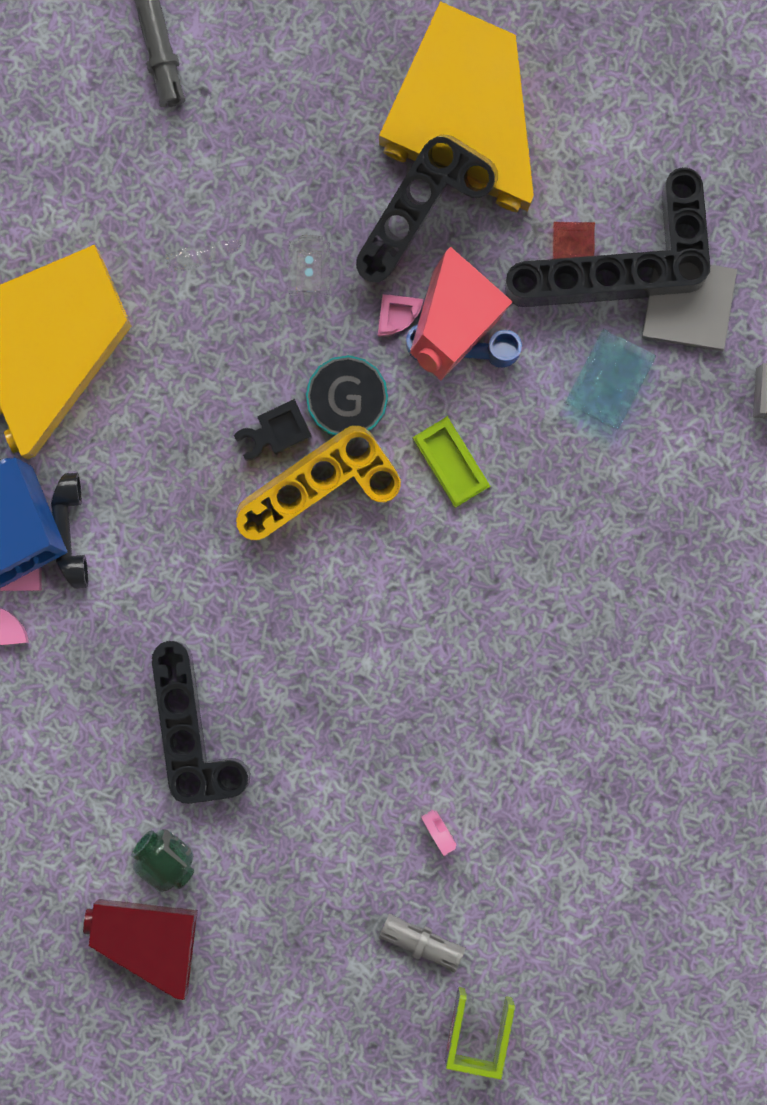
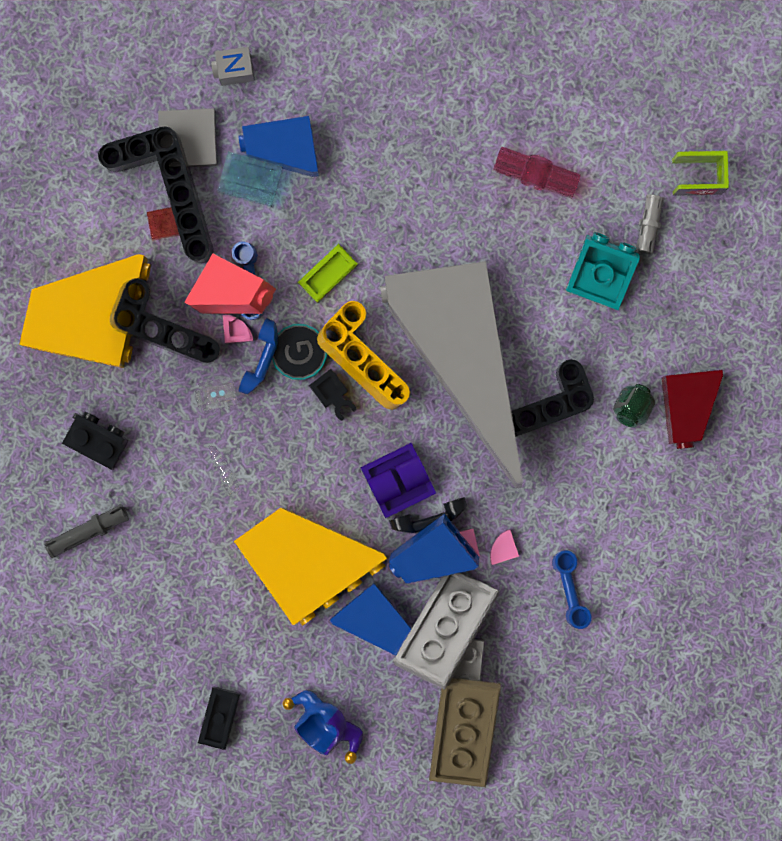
camera: 100 degrees left, 0 degrees up
(131, 497) = (398, 480): none -> dark purple plate
(283, 83) = (95, 441): none -> black bracket
(327, 624) = (455, 331): none -> light grey slope
(368, 859) = (603, 270): none -> teal plate
(378, 358) = (269, 335): none -> blue bar
(439, 832) = (577, 225): bright pink tile -> none
(532, 794) = (537, 172): none -> clear pink piece
(651, 436) = (282, 143): none -> blue slope

